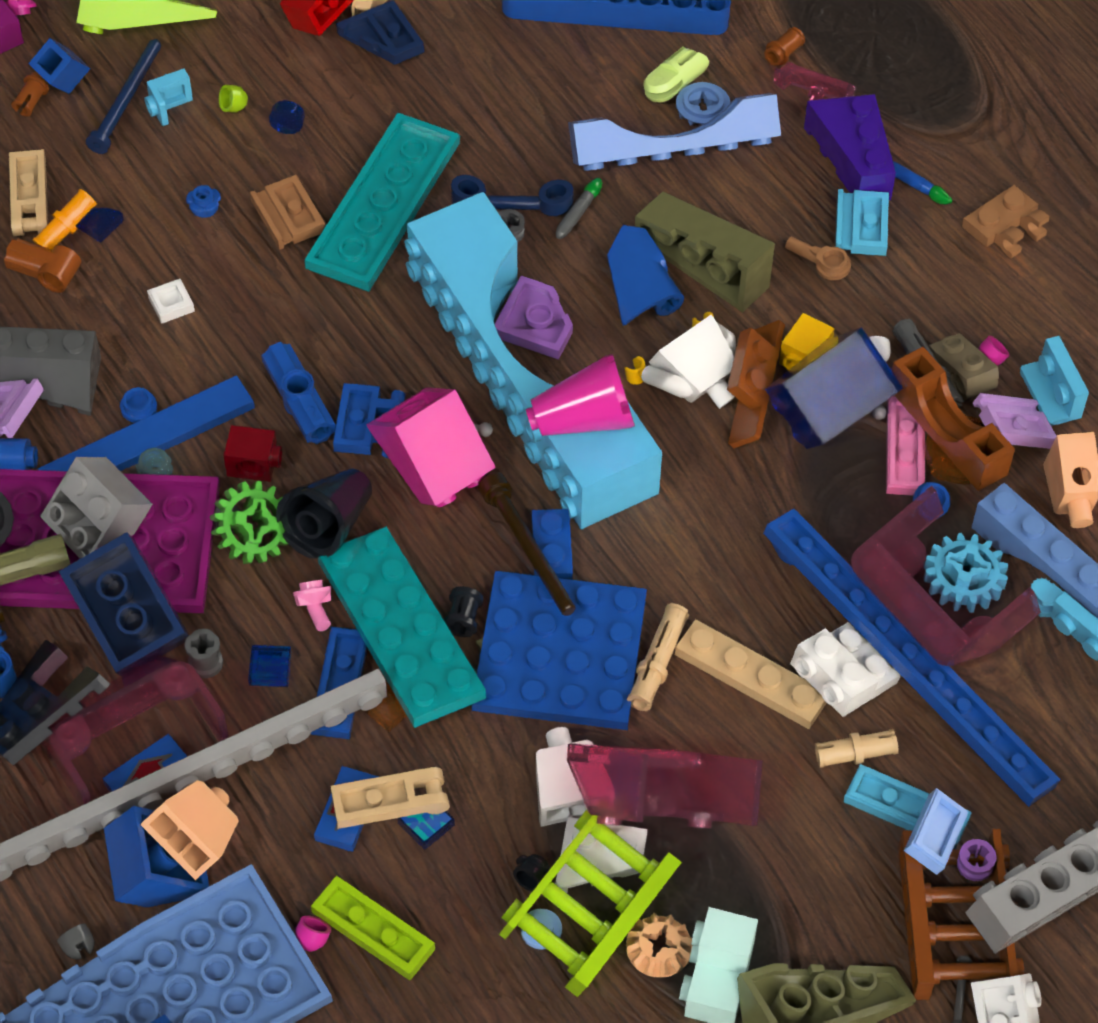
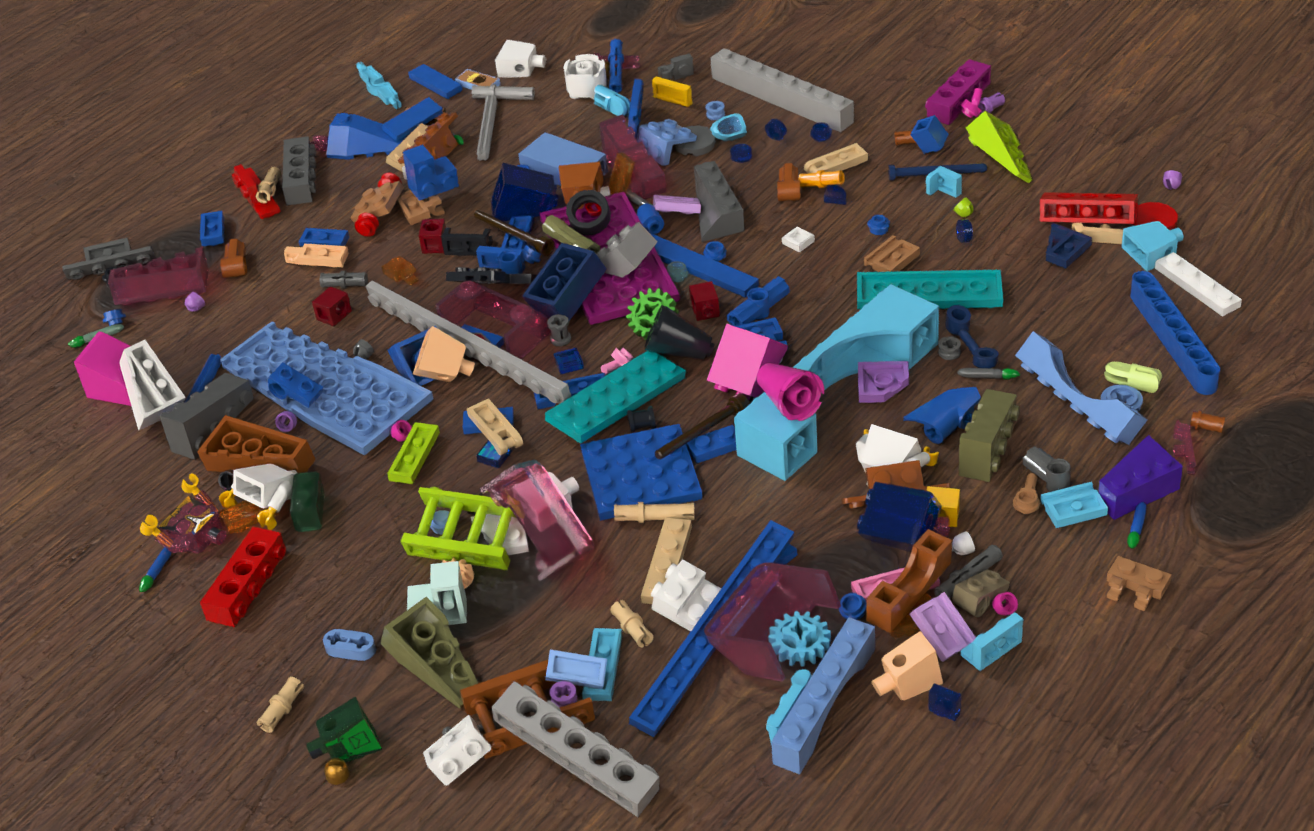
camera: 75 degrees right, 15 degrees down
(802, 218) = (1053, 471): none -> dark grey piece

